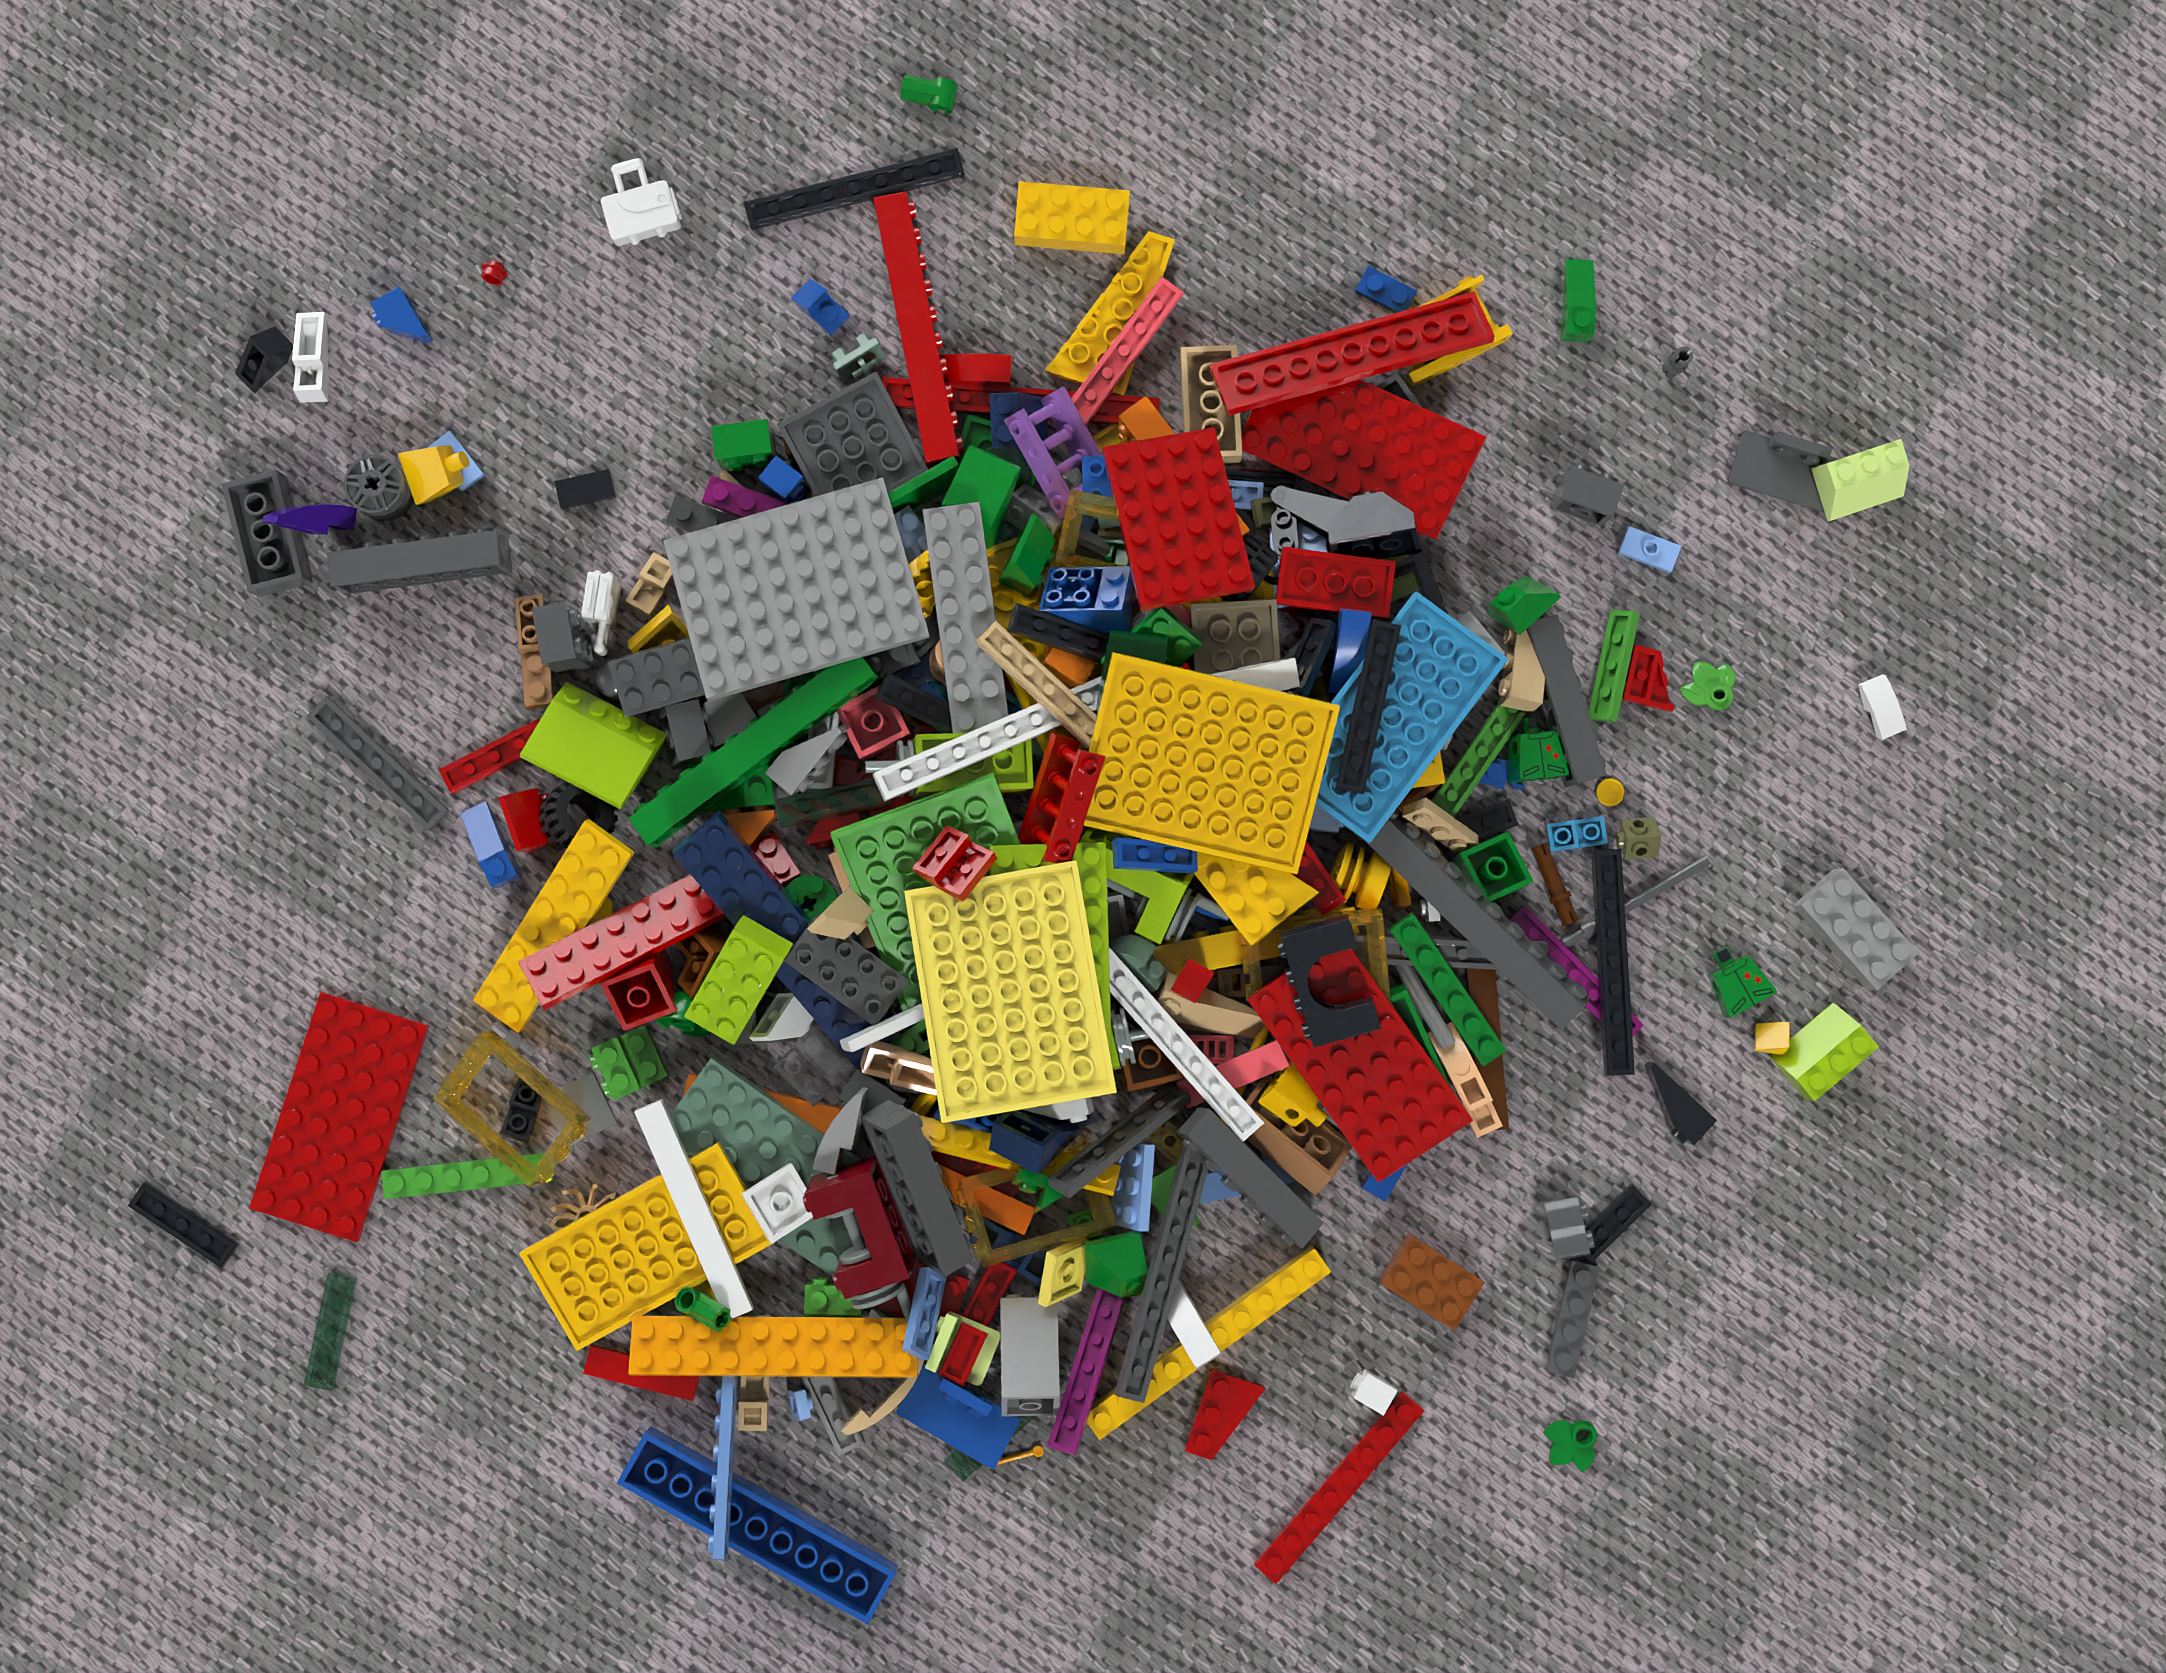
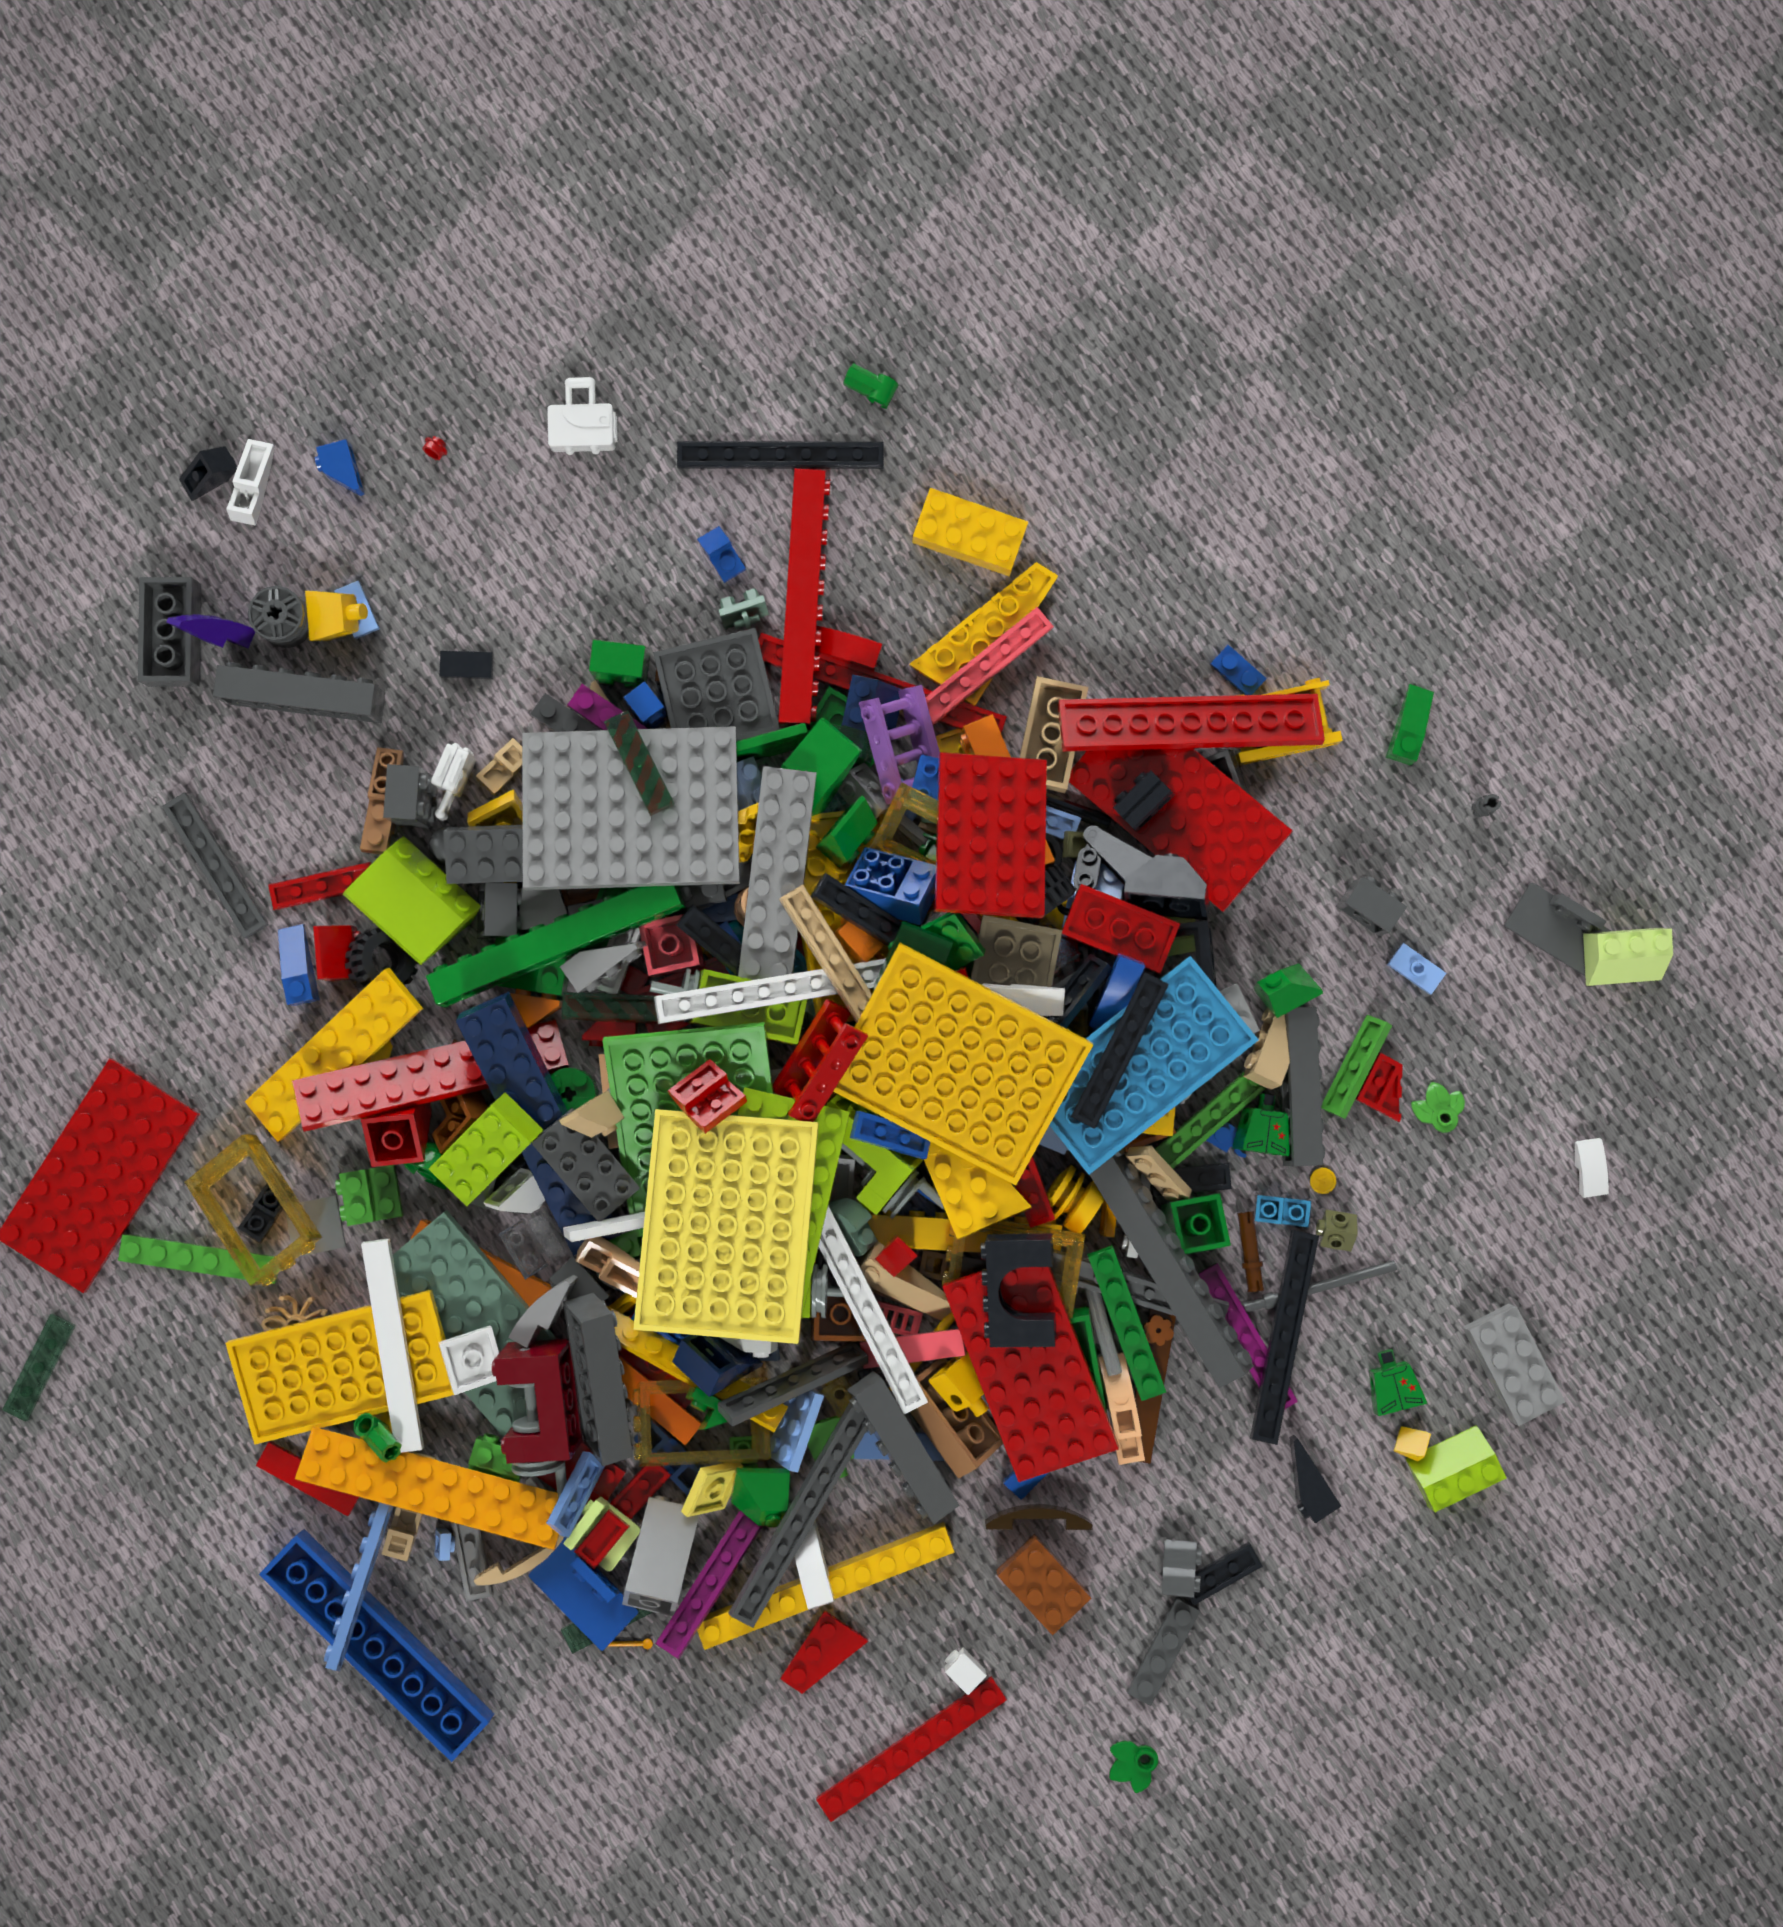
camera: 15 degrees right, 0 degrees up
(793, 539) = (639, 763): none -> tile
(1323, 446) = (1142, 800): none -> black brick
(1373, 1225) = (1004, 1519): none -> dark brown slope
(1489, 990) = (1165, 1333): none -> dark orange plant

